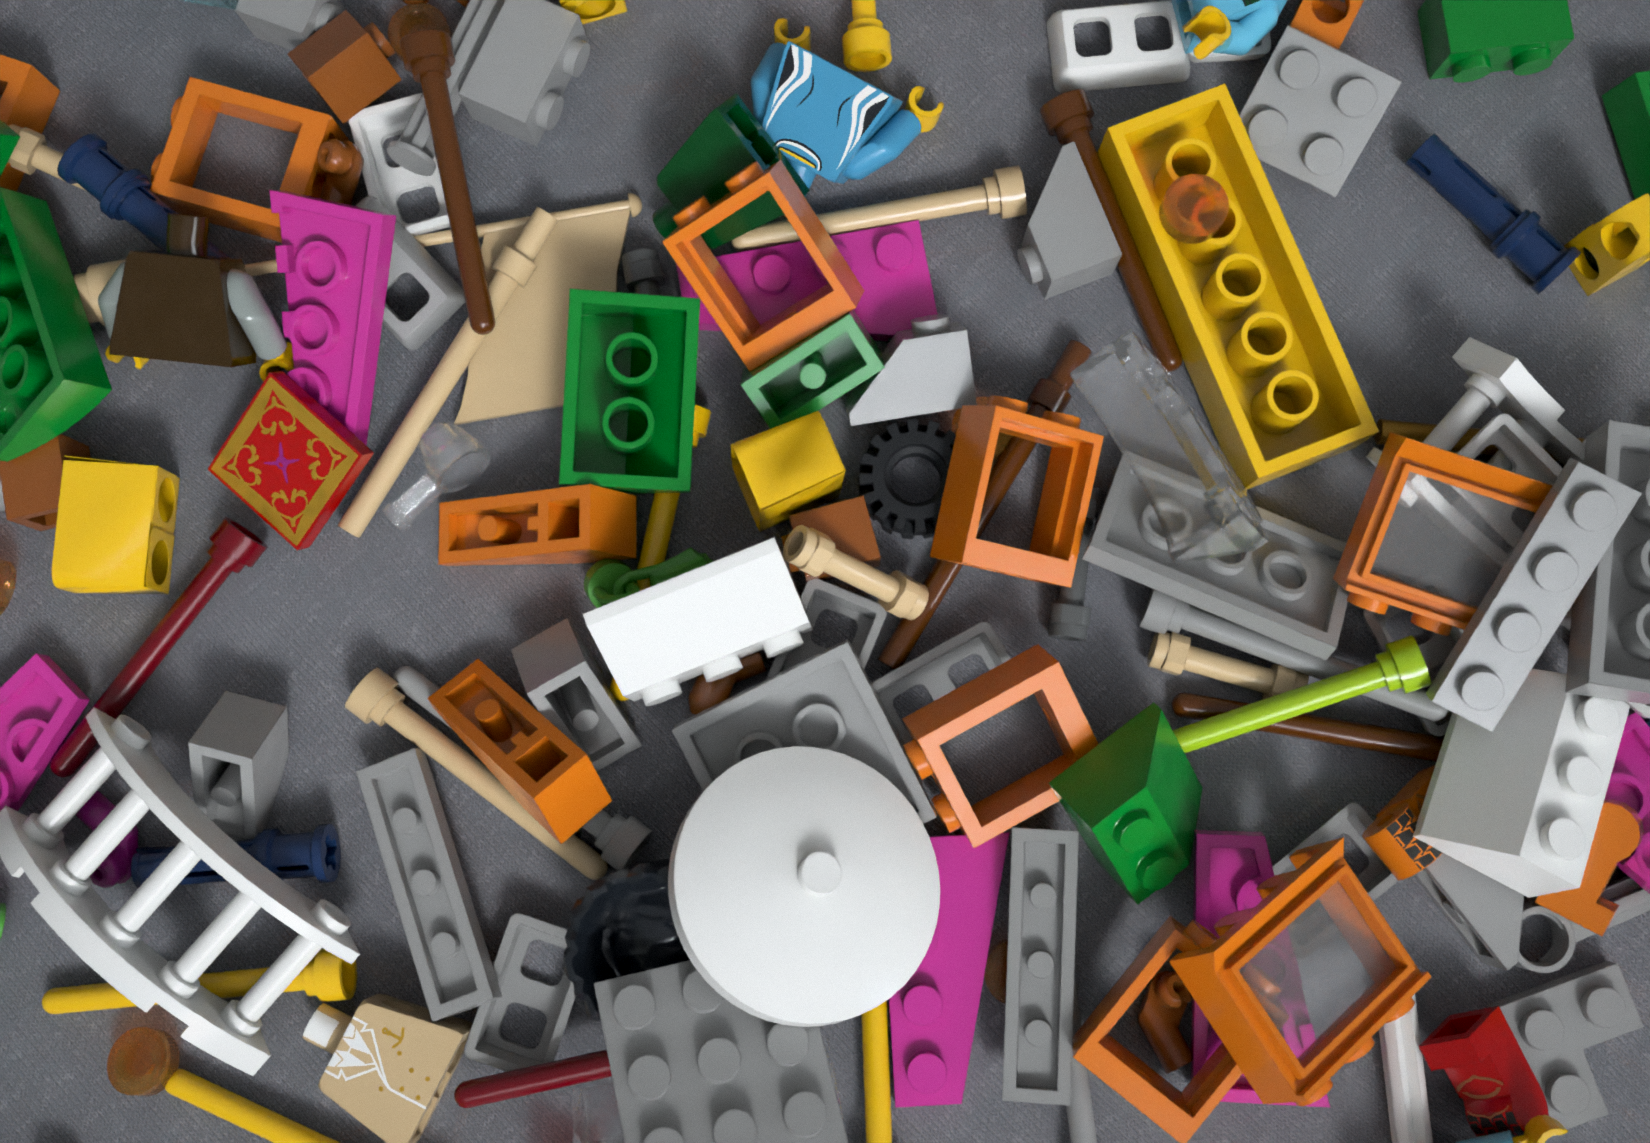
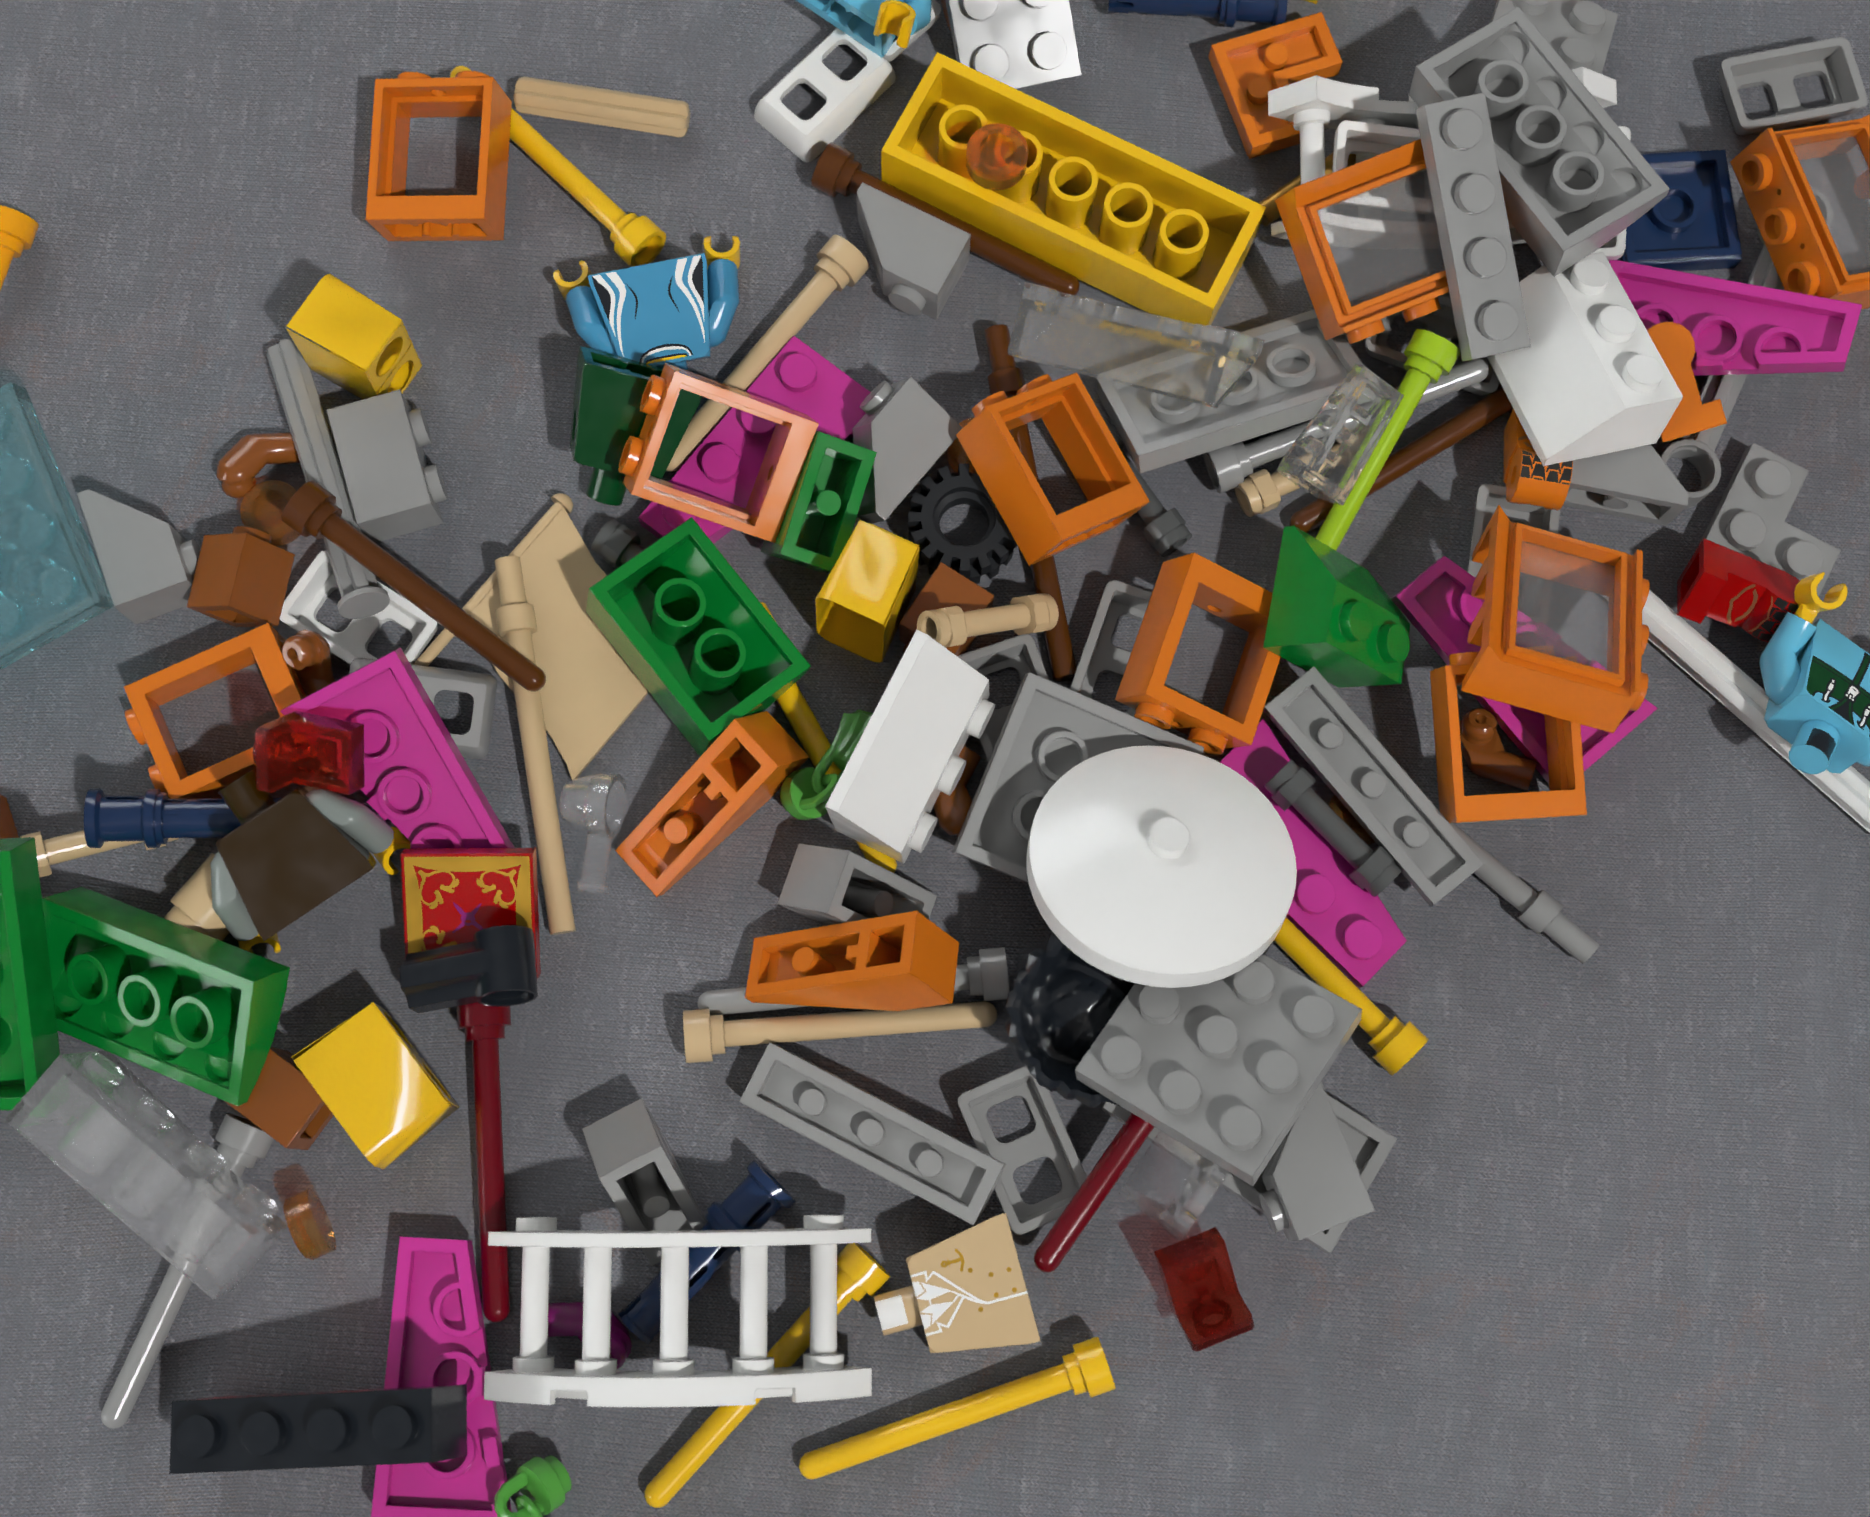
camera: 50 degrees left, 5 degrees down
(142, 1061) = (771, 1472): clear orange tile -> none
(254, 513) = (490, 970): none -> black piece
(259, 238) = (309, 753): none -> clear red bracket
(982, 1025) = (1373, 868): none -> dark grey bar
(1255, 692) = (1327, 426): none -> clear slope
(1497, 314) = (1266, 61): none -> orange plate

